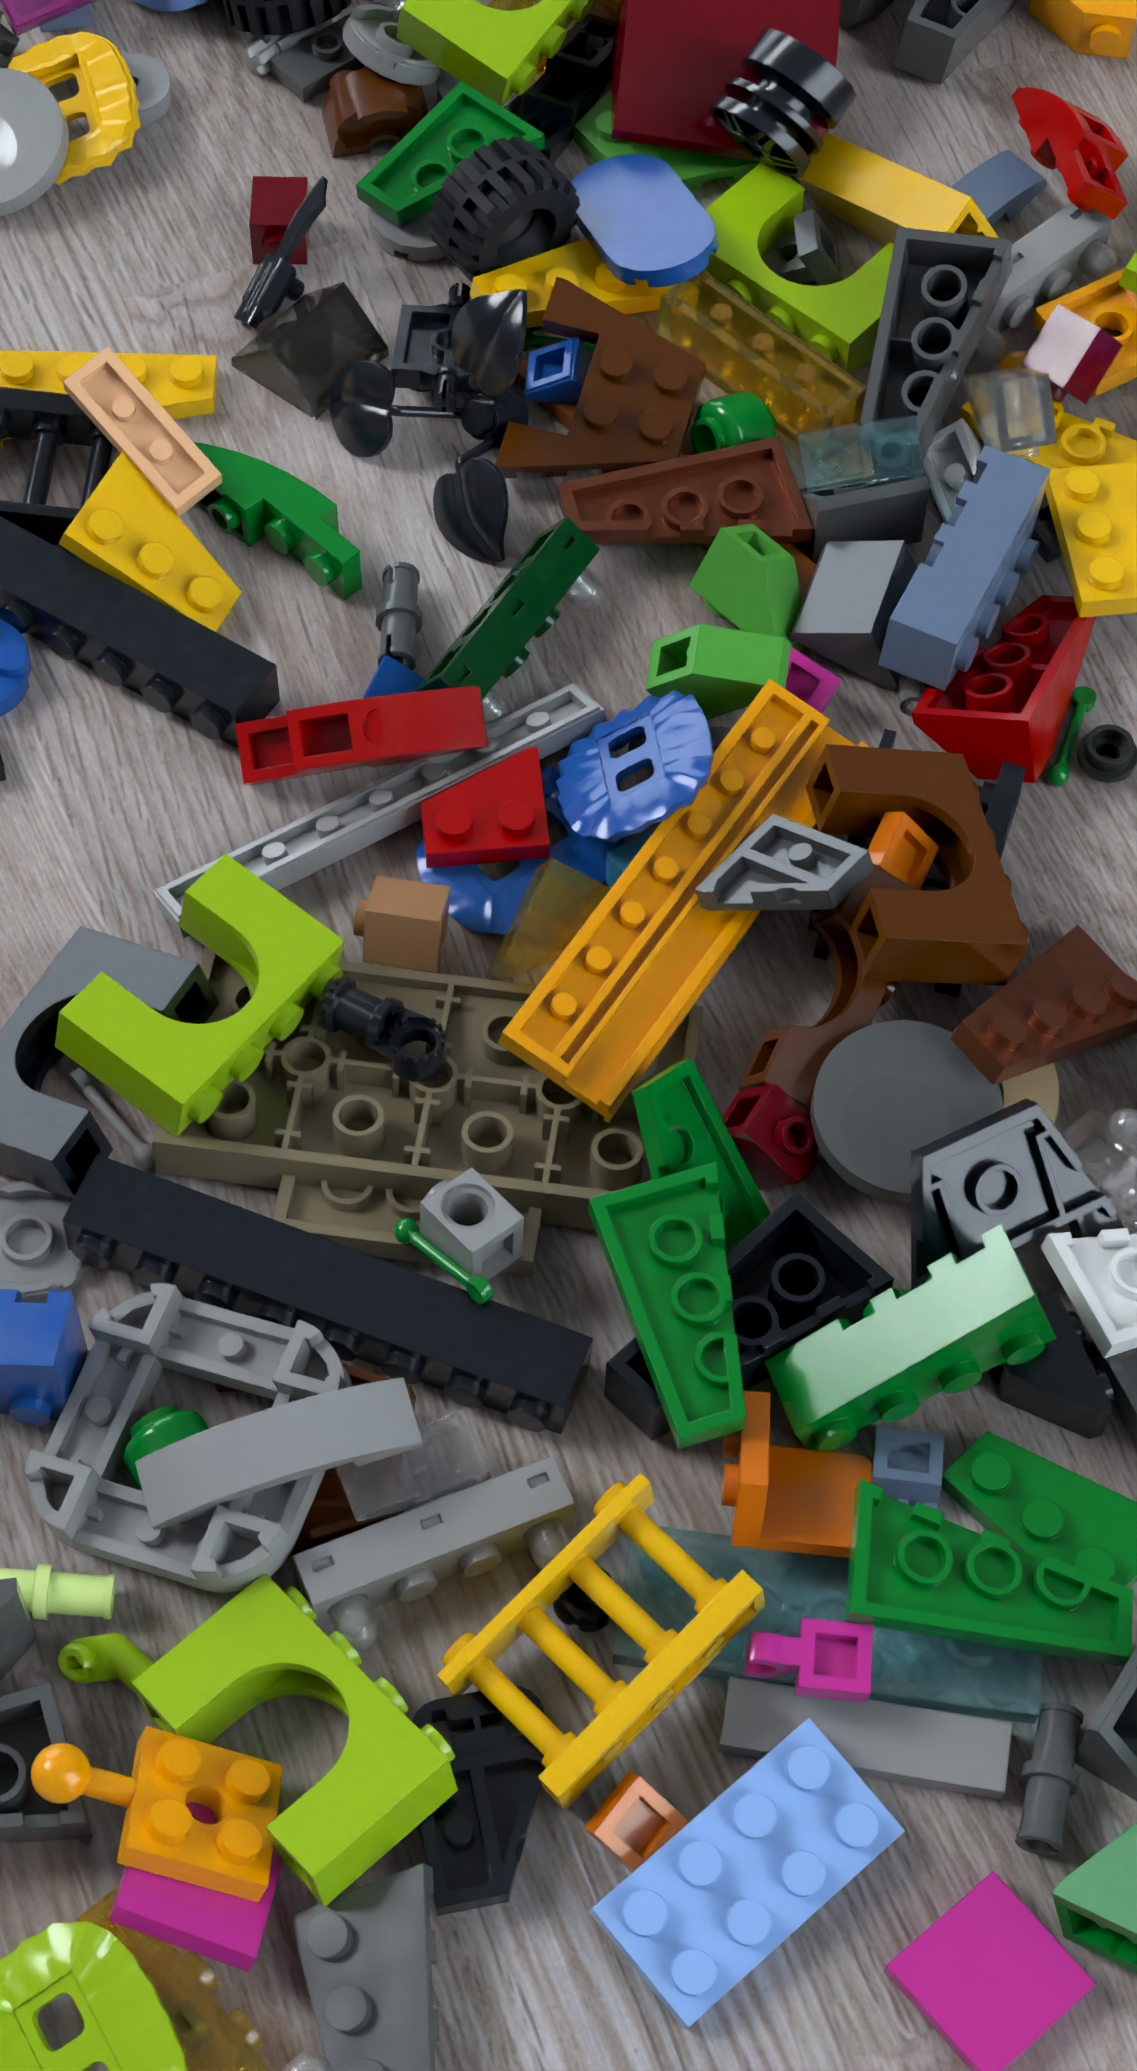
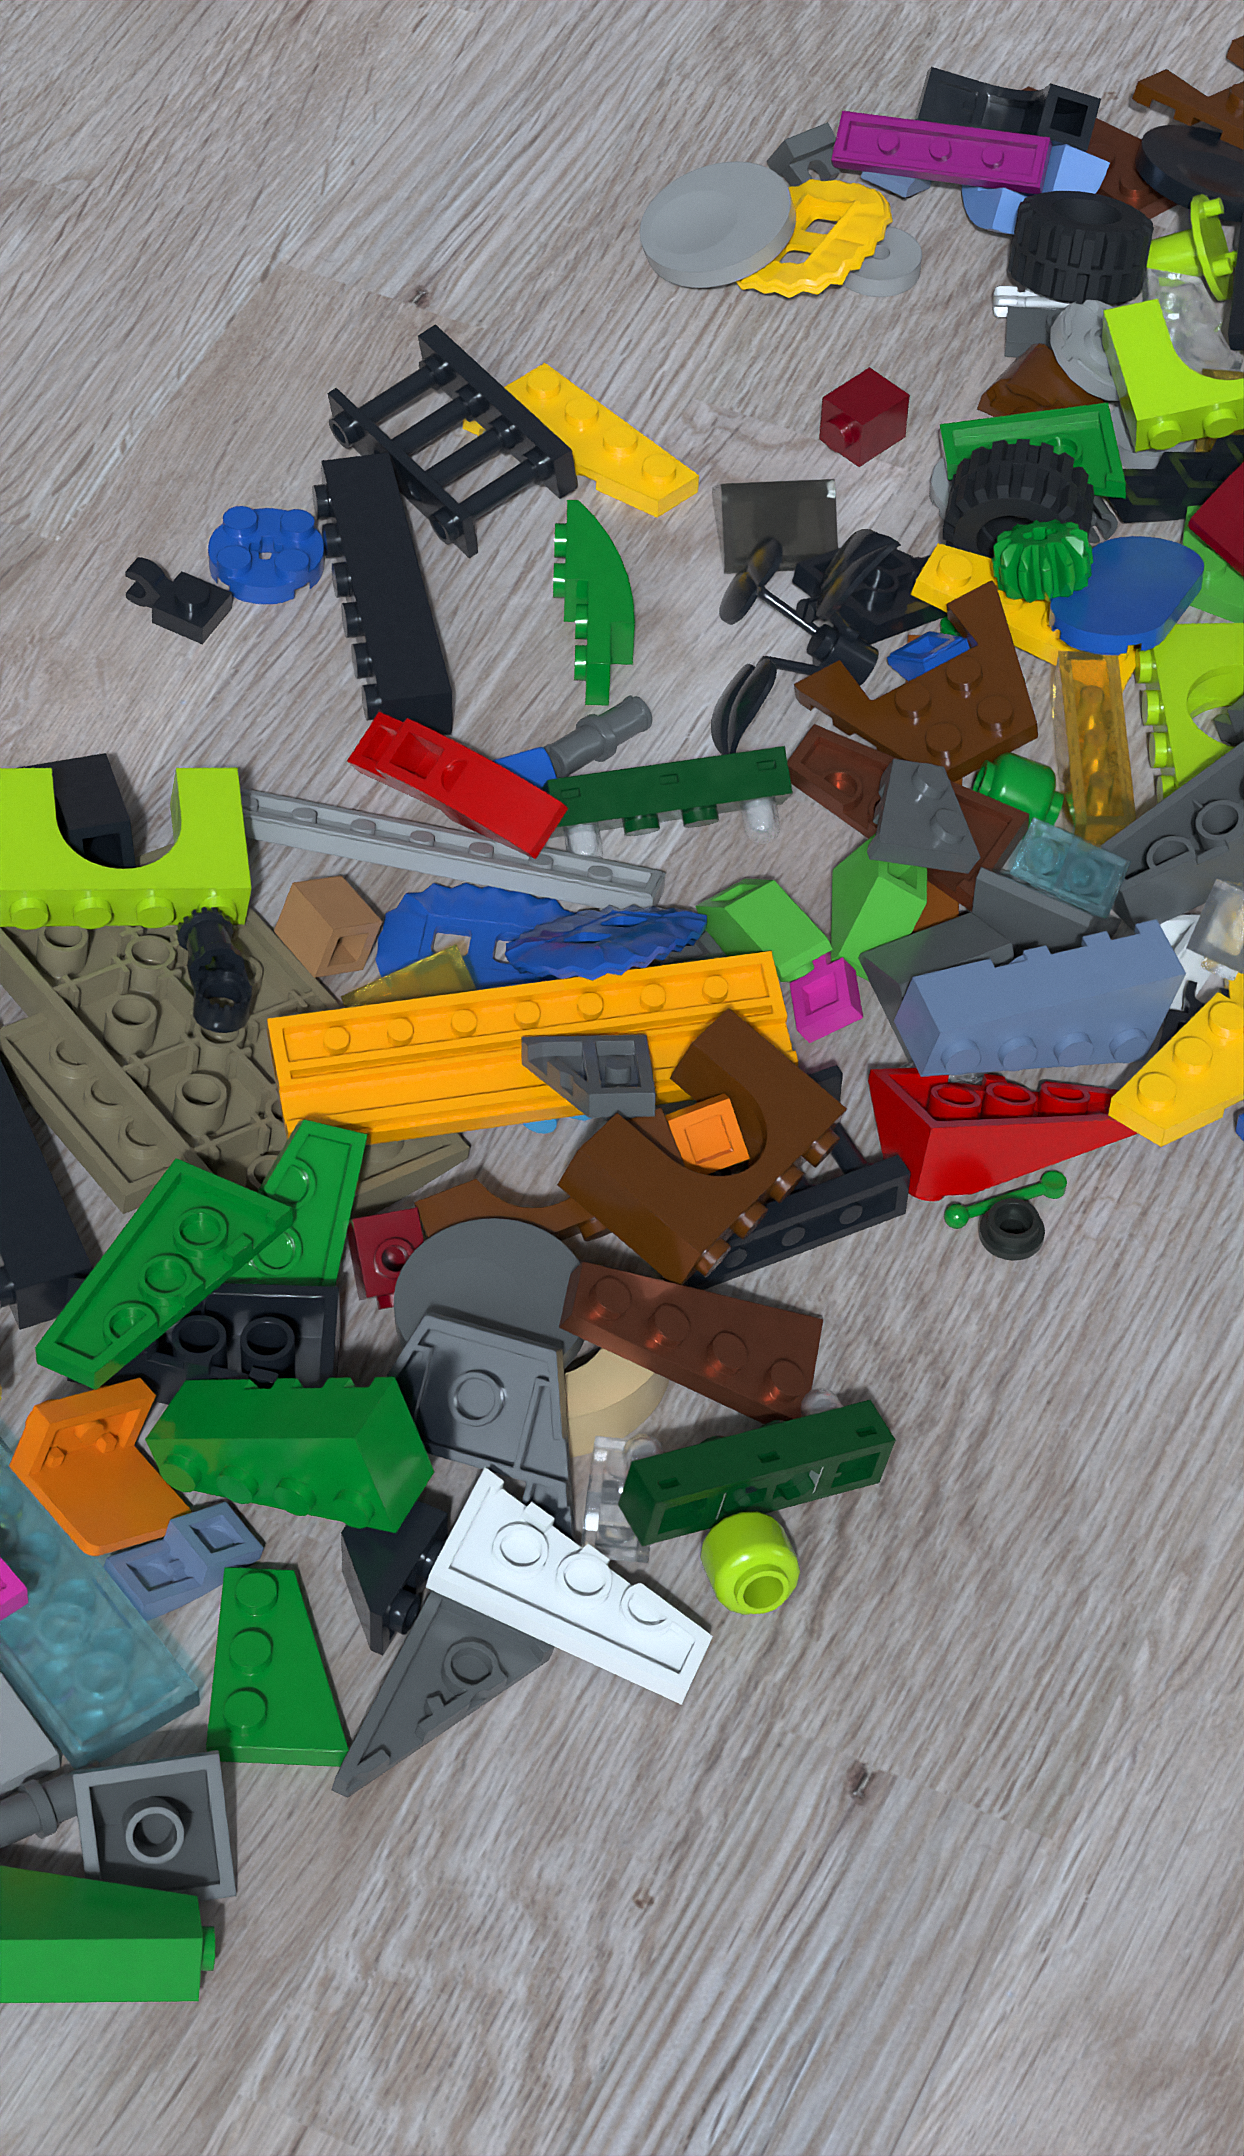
camera: 45 degrees right, 10 degrees down
(142, 430) = (545, 470): light nougat plate -> none
(146, 545) = (467, 560): yellow wing -> none
(276, 276) = (807, 447): black piece -> none
(407, 1232) = (64, 1106): green hinge -> none
(489, 816) = (478, 904): red wing -> none
(496, 1227) = (98, 1131): light grey brick -> none
(579, 234) = (1042, 560): none -> green gear
(720, 489) = (921, 820): none -> dark grey wing
(962, 1585) = (117, 1614): green wing -> none

